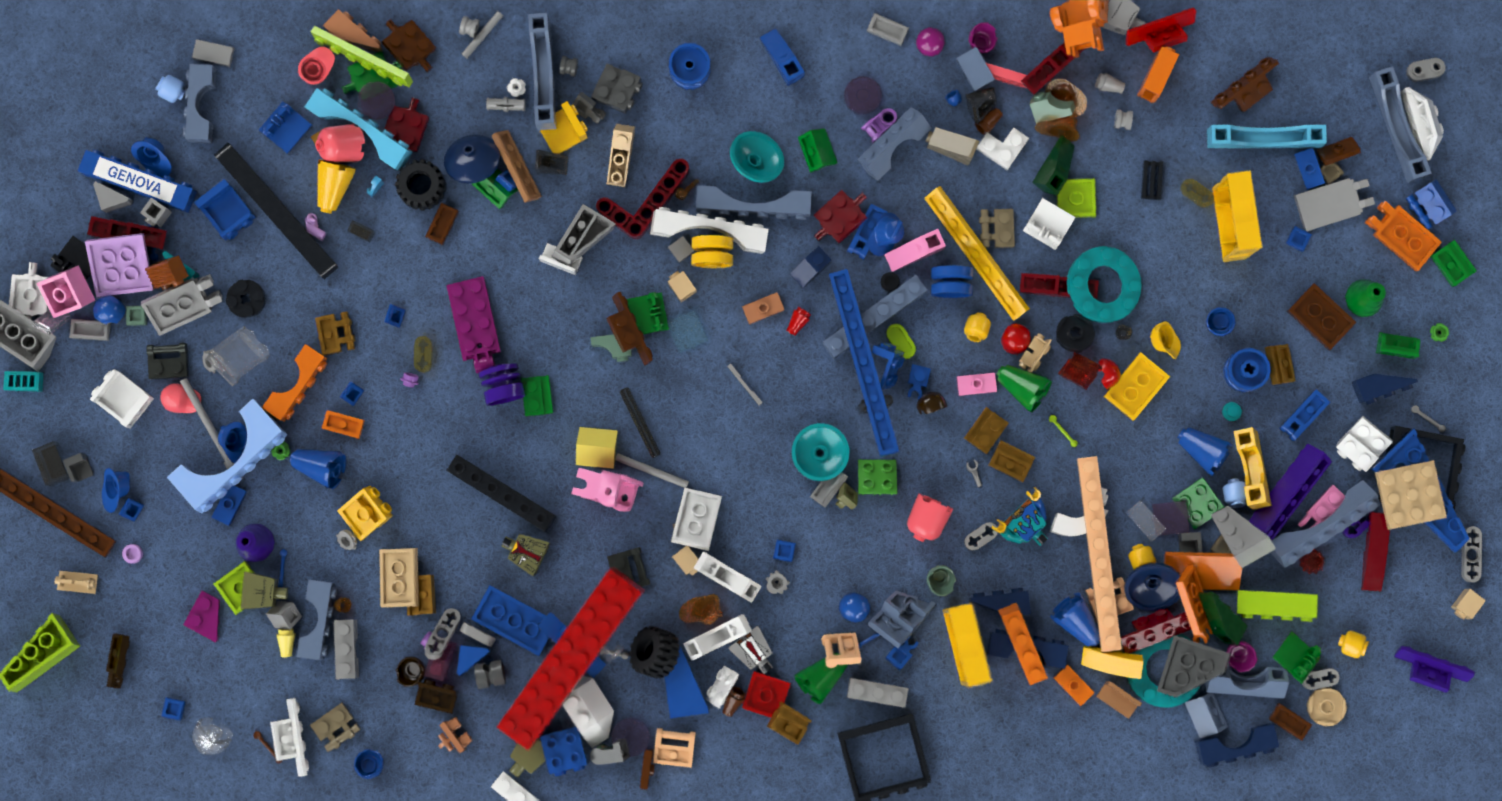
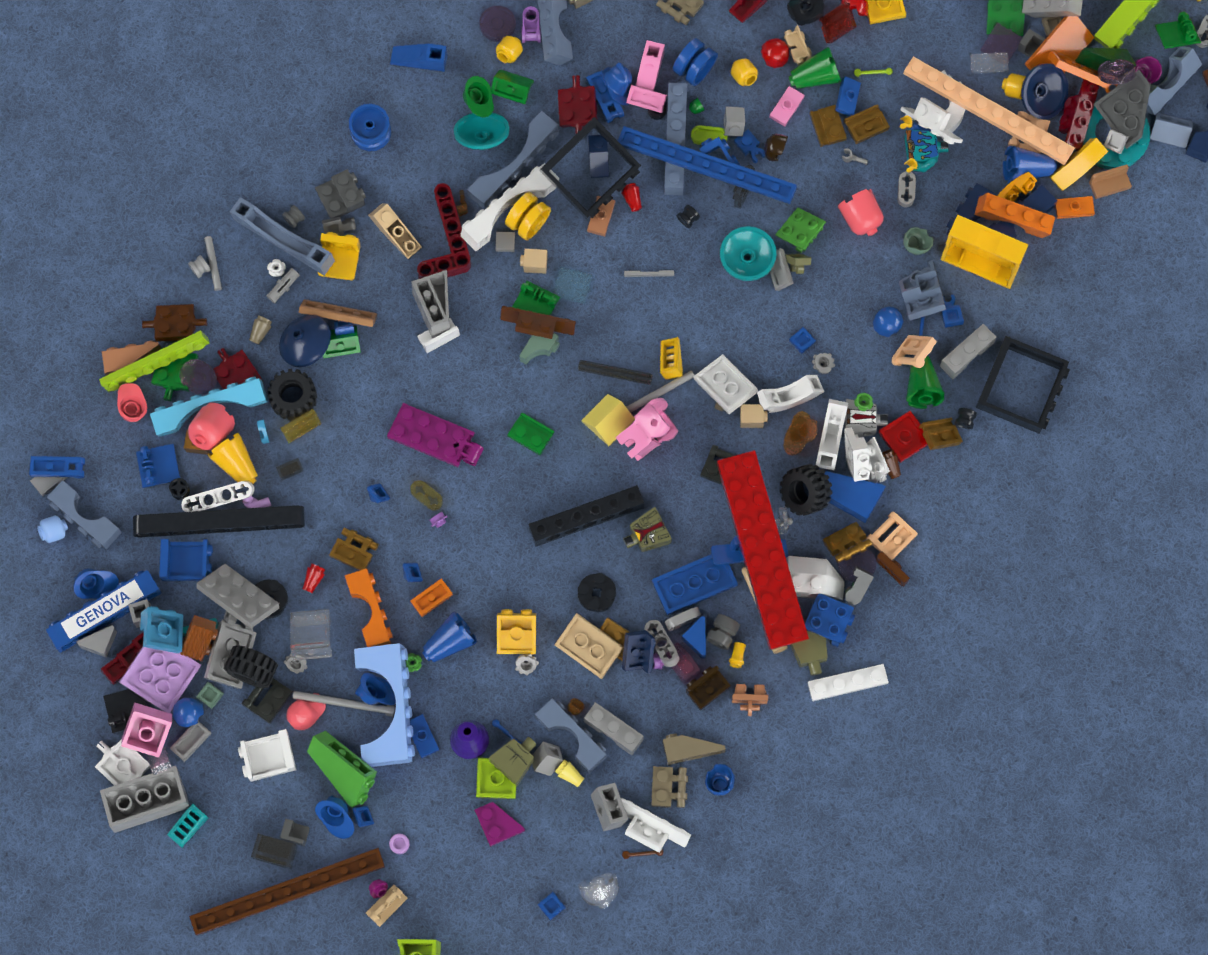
camera: 50 degrees left, 10 degrees down
(84, 566) = (378, 888): none -> magenta plate
(116, 660) = (475, 919): dark brown hinge -> none
(149, 240) = (162, 629): none -> dark azure plate
(153, 464) = (343, 768): none -> bright green slope
(173, 331) = (250, 666): none -> black tyre
(220, 51) = (56, 466): none -> blue plate
(224, 275) = (237, 596): none -> light grey plate
(276, 156) = (176, 486): none -> black wheel
(280, 694) = (609, 807): none -> light grey brick
(288, 320) = (313, 577): none -> red cone
(292, 196) = (217, 496): none -> white beam
(373, 716) = (686, 748): none -> dark tan slope
(401, 211) = (300, 425): none -> clear yellow plate
(410, 671) = (671, 692): dark brown hair -> none
(421, 621) = (638, 651): none -> dark blue bracket
(441, 540) = (607, 594): none -> black plate
(442, 223) = (336, 403): reddish brown plate -> none
(455, 116) = (260, 329): none -> dark tan cone
(481, 700) = (737, 655): none -> yellow pin
(501, 382) = (499, 448): dark purple wheel -> none
(550, 163) = (357, 286): clear smoke slope -> none
(643, 712) = (846, 538): none -> pearl gold plate
(689, 461) = (674, 369): none -> yellow slope
(714, 673) = (857, 455): none -> white plate
(764, 647) = (863, 397): none -> bright green plate
(776, 301) = (619, 185): none -> black window
(784, 132) = (478, 96): none -> green piece
(816, 378) = (688, 216): none -> black wheel
(819, 733) = (965, 418): none -> black wheel
(846, 122) = (509, 49): none -> yellow head
(890, 267) = (646, 98): none -> bright pink plate
(917, 311) = (696, 106): none -> green hinge
(926, 353) = (734, 121): none -> light grey brick
(976, 253) = (687, 31): yellow plate -> none
(1023, 427) = (848, 96): none -> blue plate
(1053, 514) = (932, 117): none -> white bracket
(1057, 630) = (1021, 184): none -> light orange slope
(1156, 678) = (1116, 141): none -> light grey tile
(1212, 636) = (1116, 72): none -> clear purple tile

